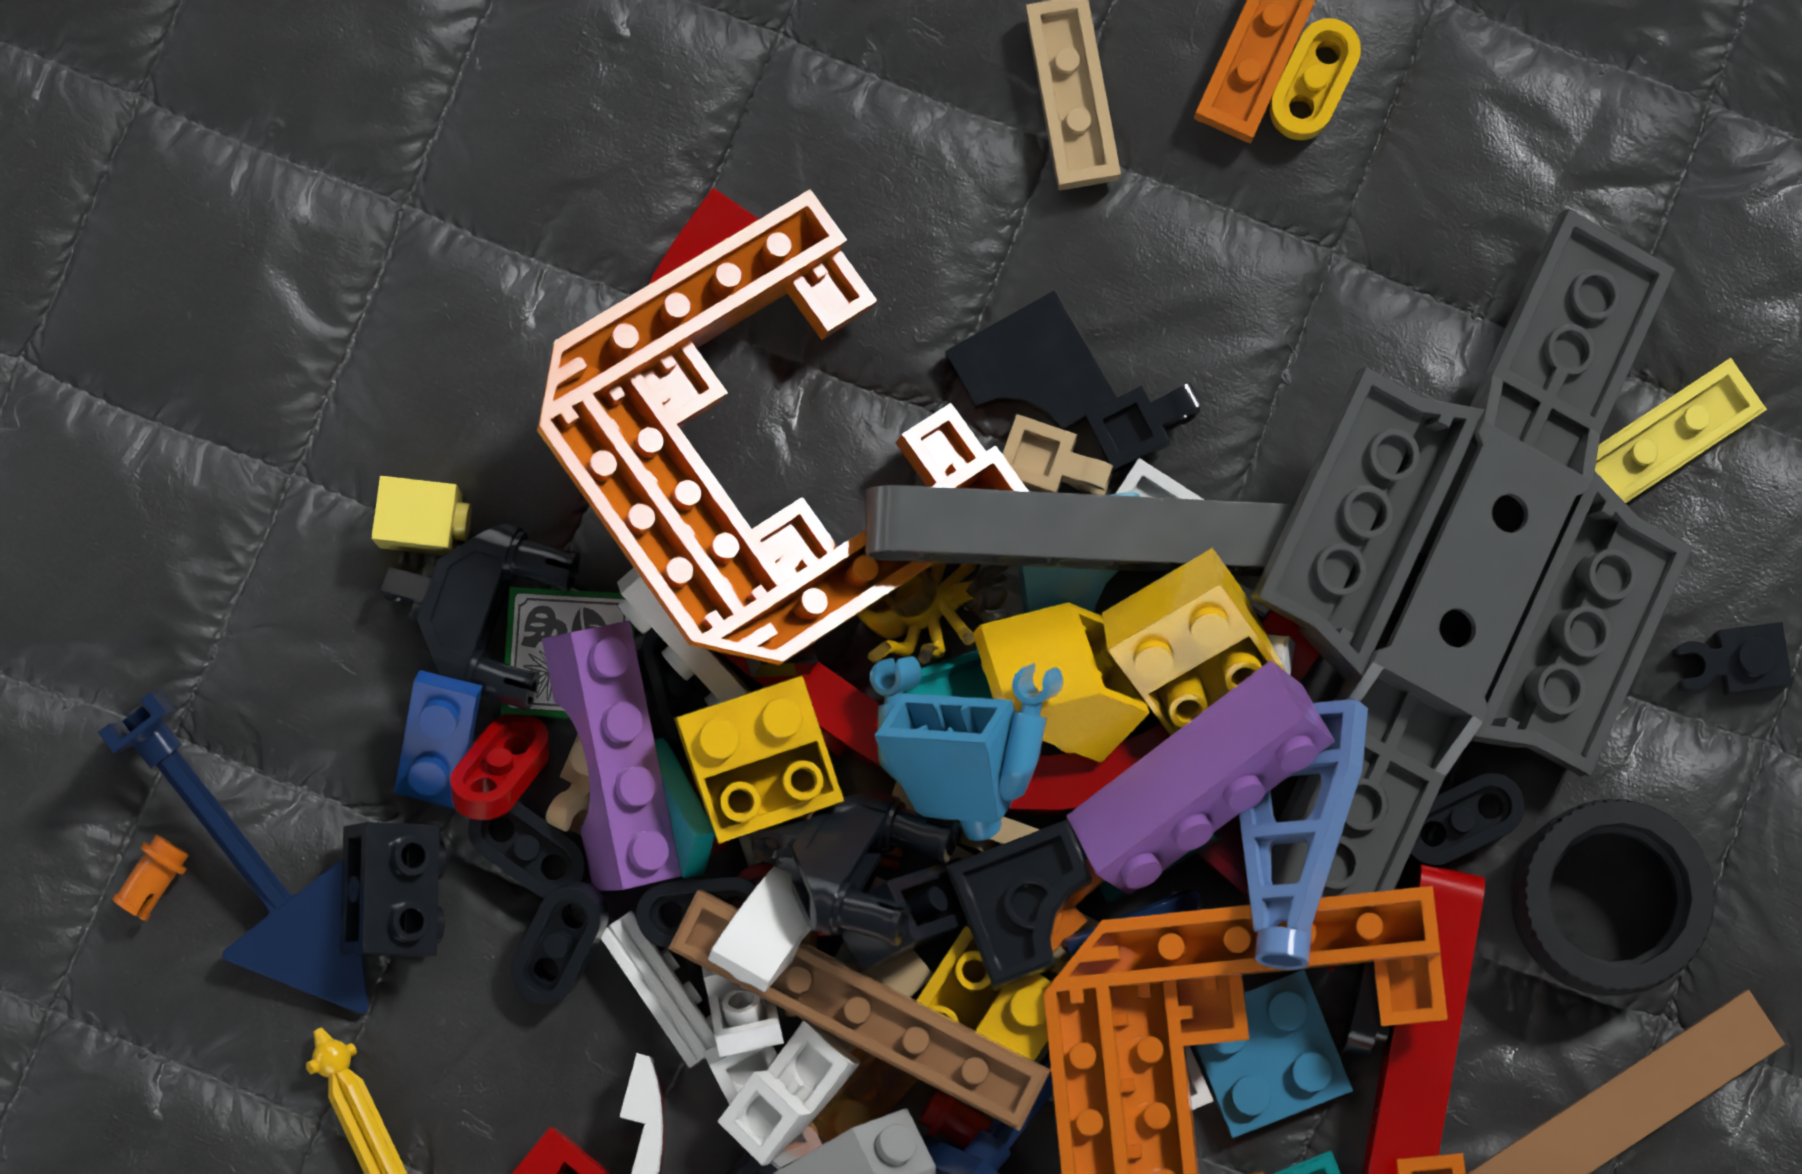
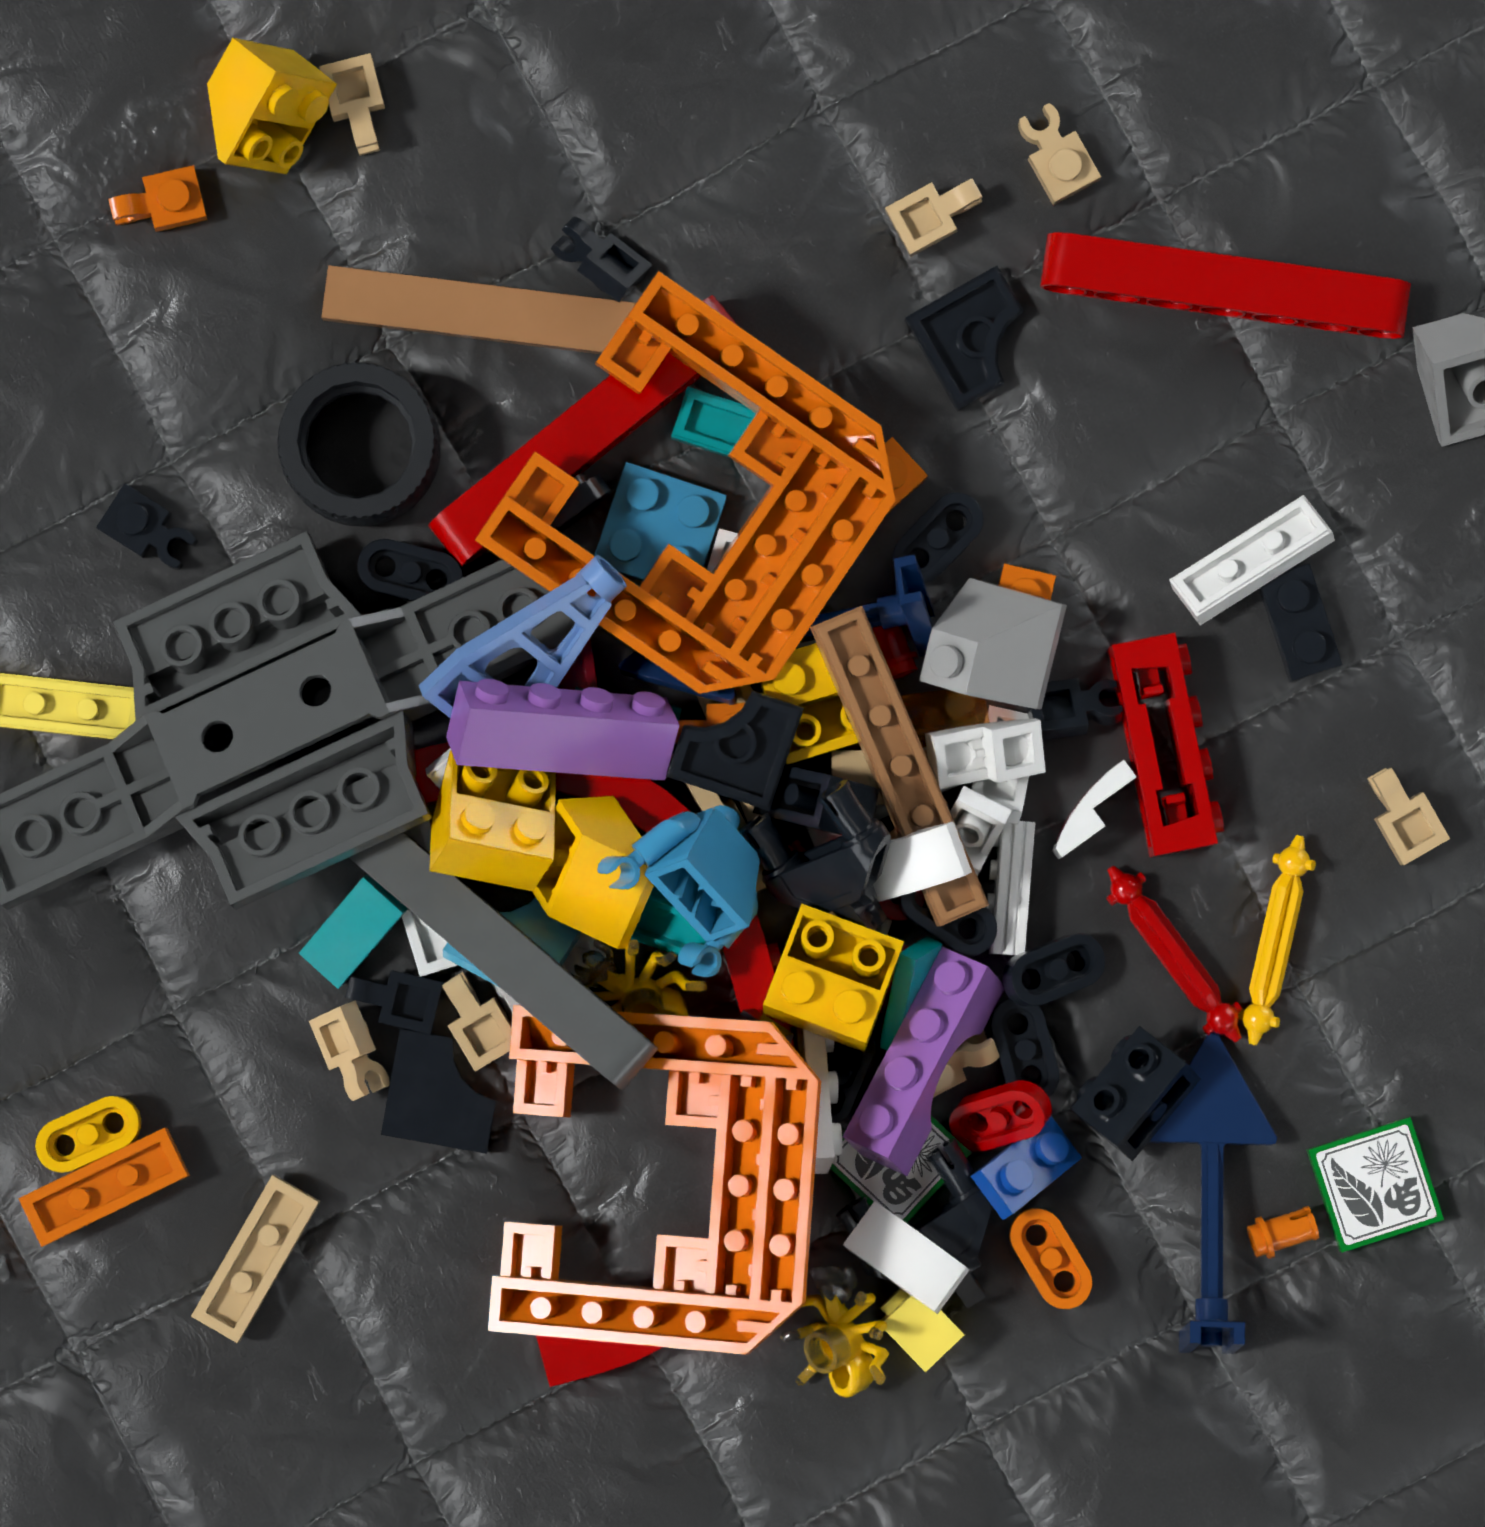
camera: 140 degrees left, 5 degrees up
(98, 993) = (1375, 1184): none -> tile
(350, 678) = (1050, 1257): none -> orange plate
(459, 1053) = (1174, 953): none -> red wheel
(480, 436) = (839, 1345): none -> animal
(481, 561) = (906, 1257): none -> white slope
(1152, 343) = (345, 1044): none -> tan plate
(1234, 445) = (353, 931): none -> teal tile

